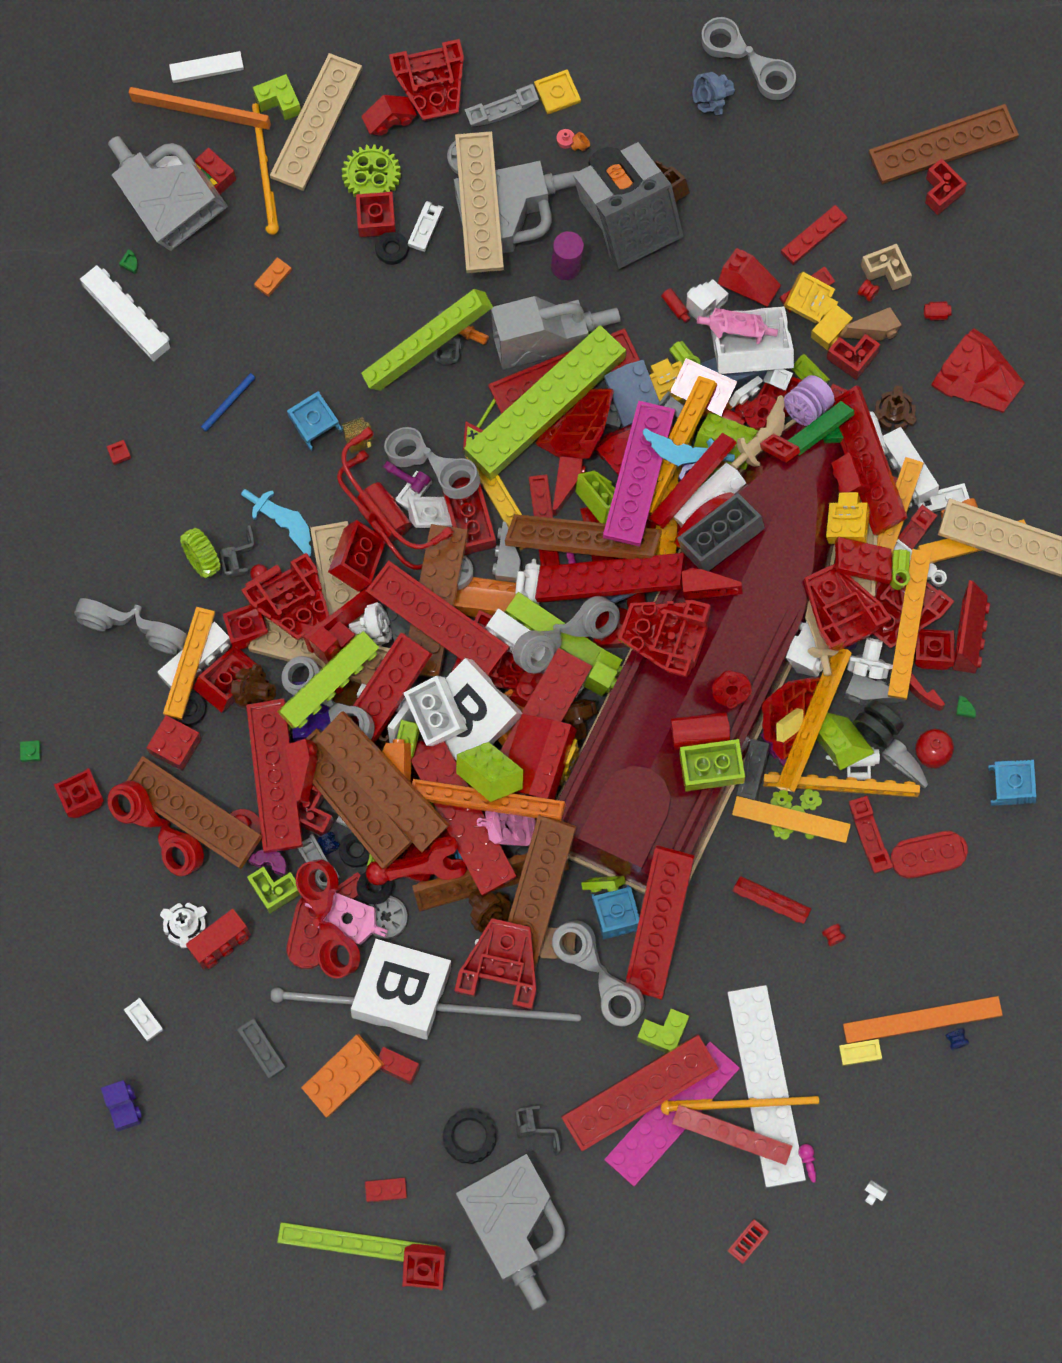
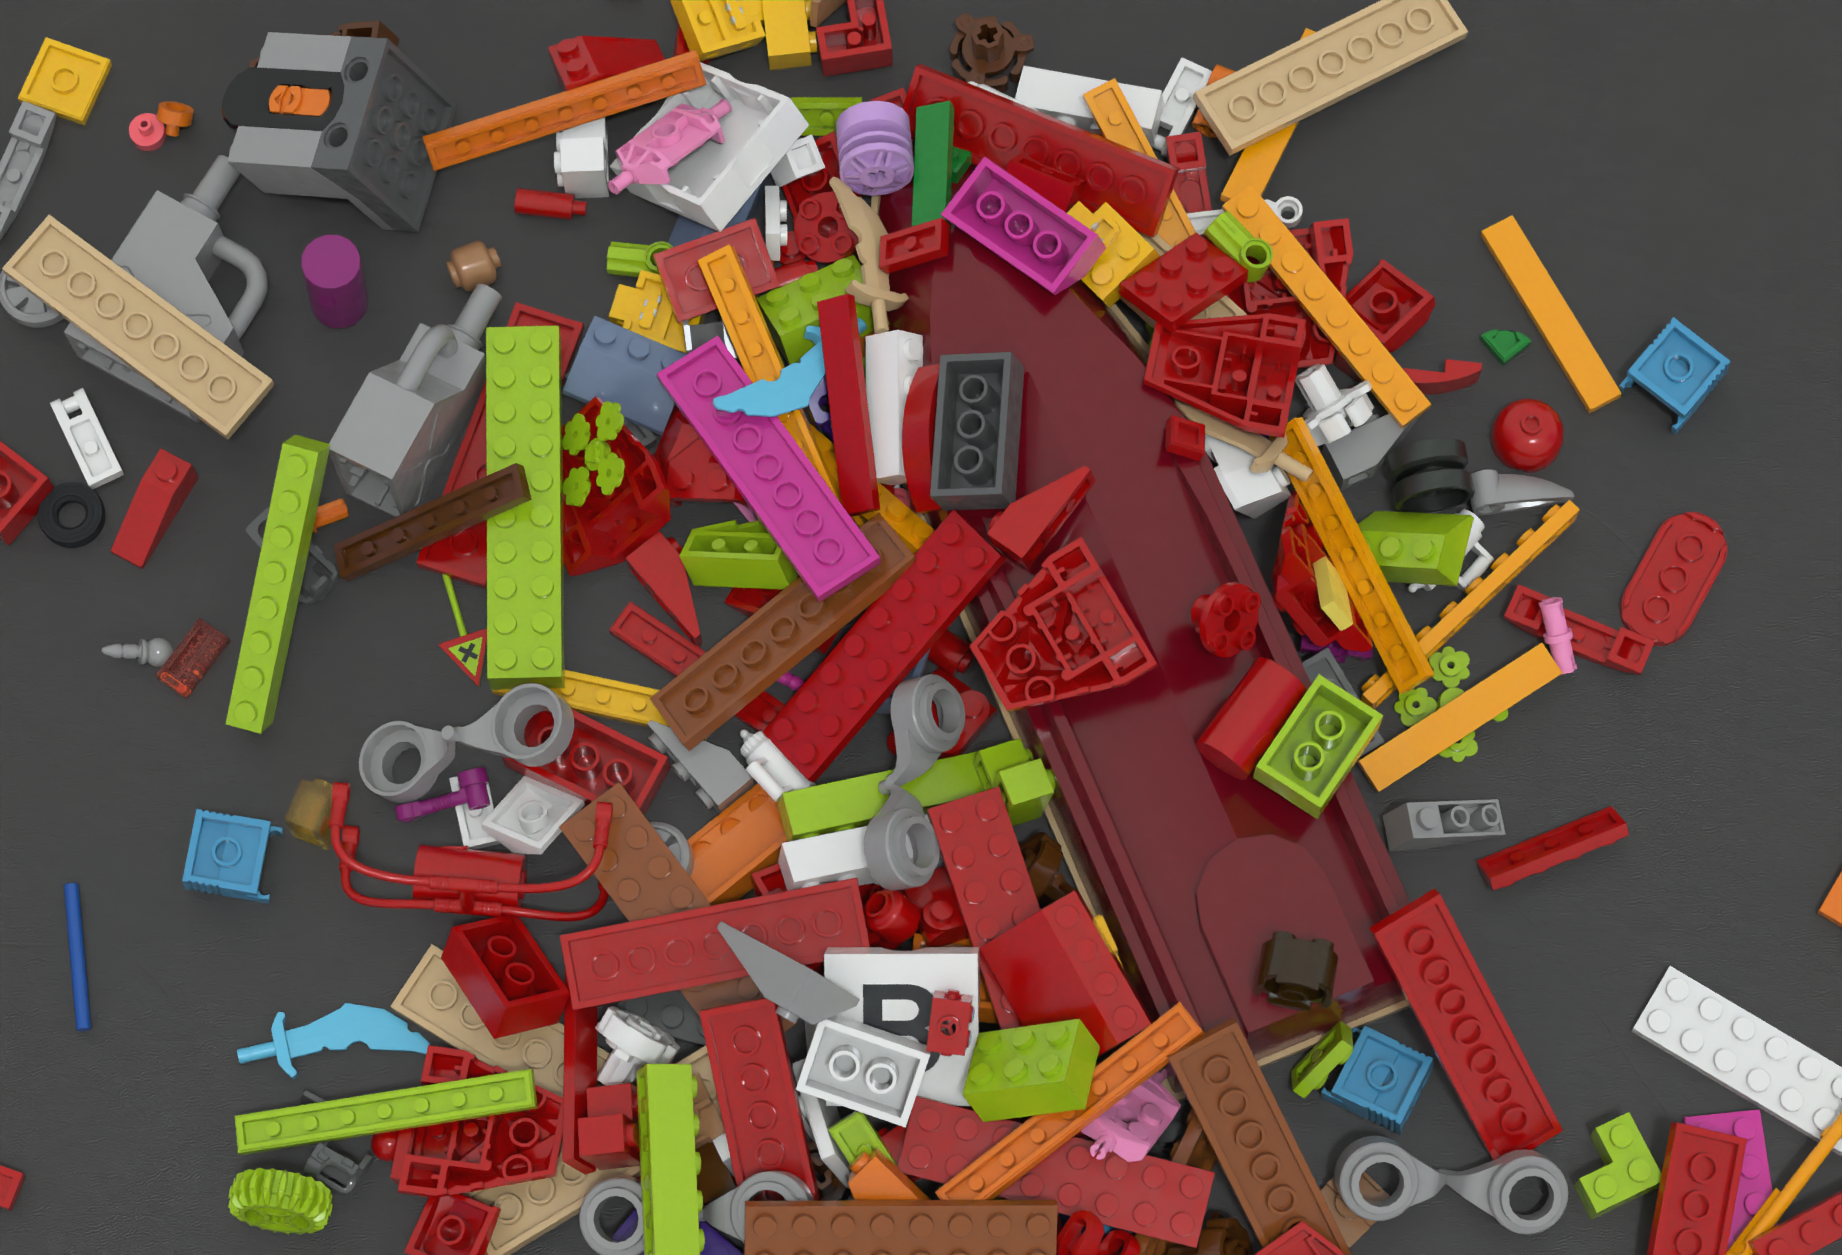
camera: 50 degrees left, 0 degrees up
(267, 560) = (386, 1112): none -> lime tile
(368, 325) = (154, 651): none -> light grey bar
(377, 340) = (192, 658): none -> clear red tile
(421, 273) = (154, 507): none -> red slope
(439, 652) = (786, 982): none -> light grey wedge
(480, 726) = (957, 1009): none -> red head
(506, 374) = (432, 522): none -> reddish brown plate
(508, 673) = (892, 916): none -> red head
(587, 409) = (597, 454): none -> lime plant
(614, 832) = (1296, 971): none -> dark brown brick
(624, 300) = (473, 265): none -> medium nougat head
(715, 276) = (564, 110): none -> orange tile
(743, 850) = (1442, 823): none -> light grey slope
(795, 613) = (1185, 437): none -> red tile
(823, 481) = (1023, 228): none -> dark pink slope
(833, 935) = (1679, 808): red wheel -> none
(860, 828) = (1558, 634): none -> bright pink pin
(970, 629) = (1401, 235): red slope -> none
(994, 714) = (1550, 314): none -> light orange tile

